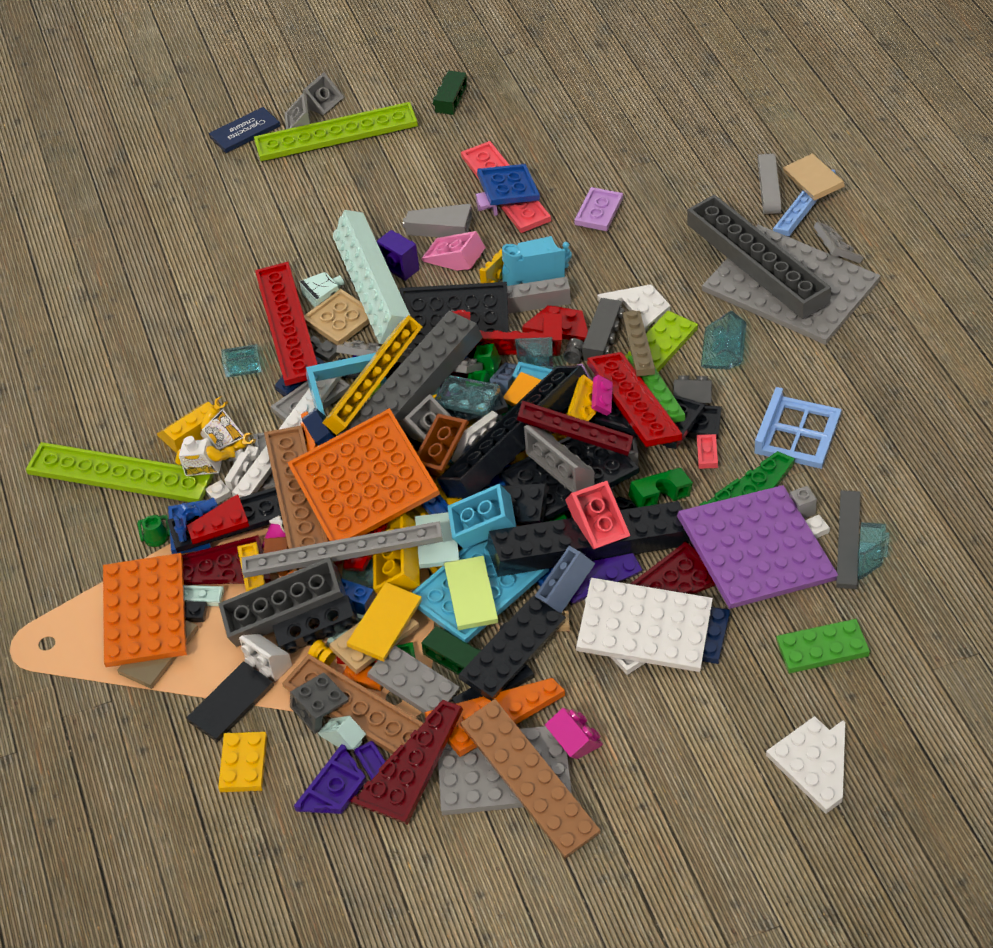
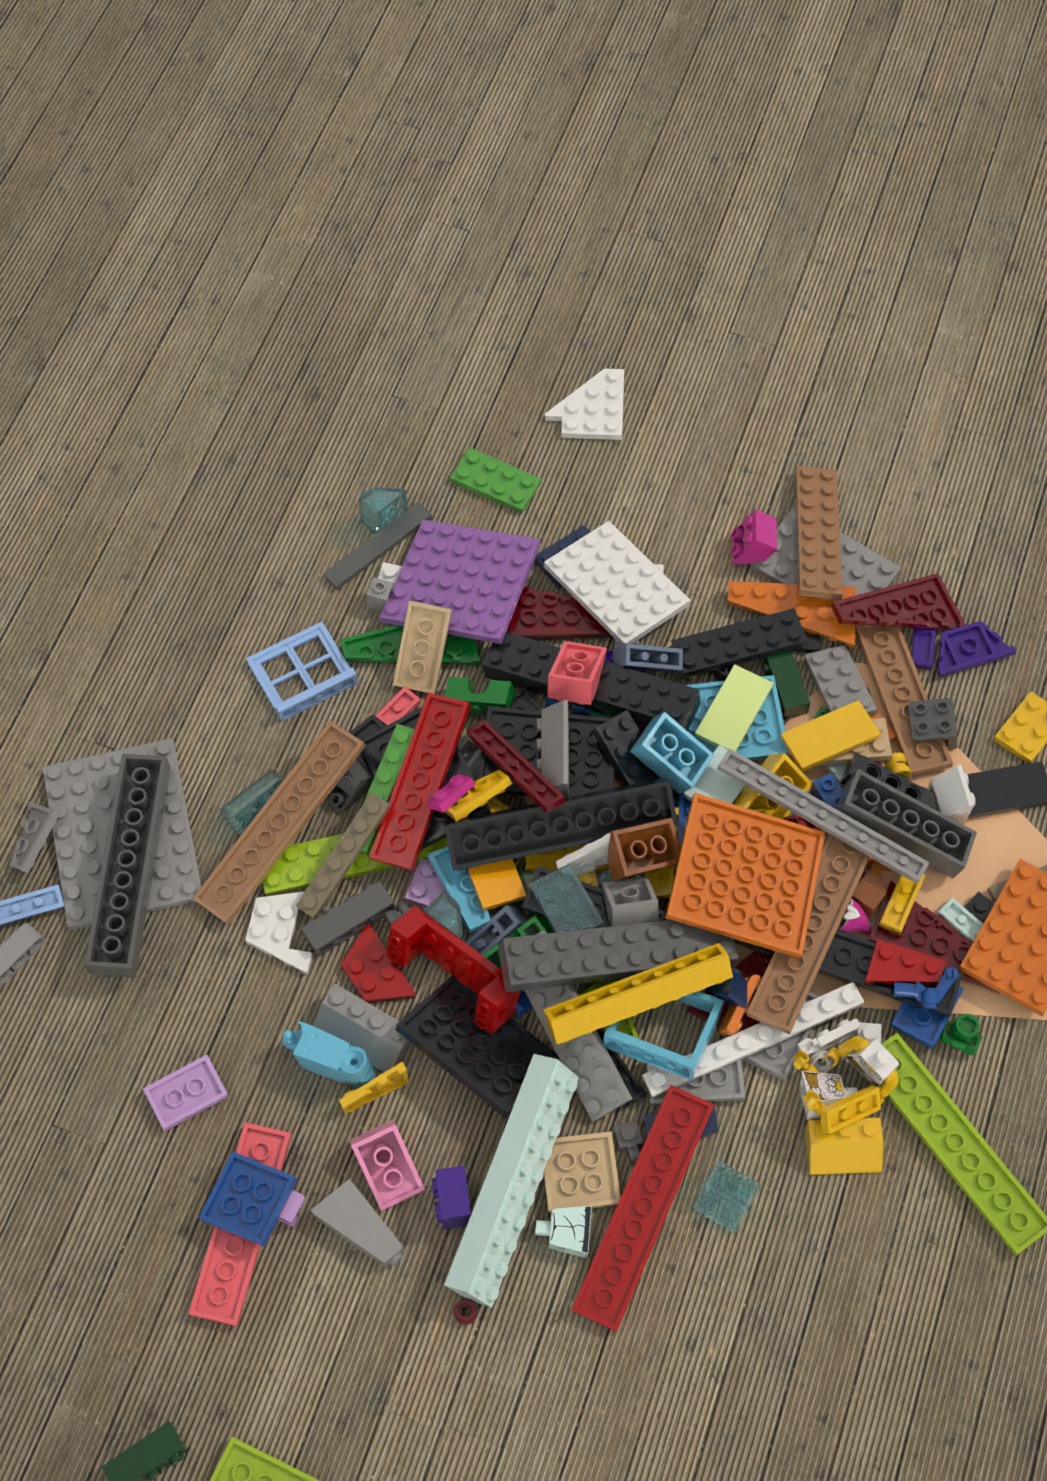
camera: 145 degrees left, 15 degrees up
(196, 422) = (850, 1109): none -> yellow plate
(343, 731) = (933, 679): light aqua slope -> none
(698, 335) = (279, 822): none -> medium nougat plate
(729, 480) = (422, 647): none -> tan plate

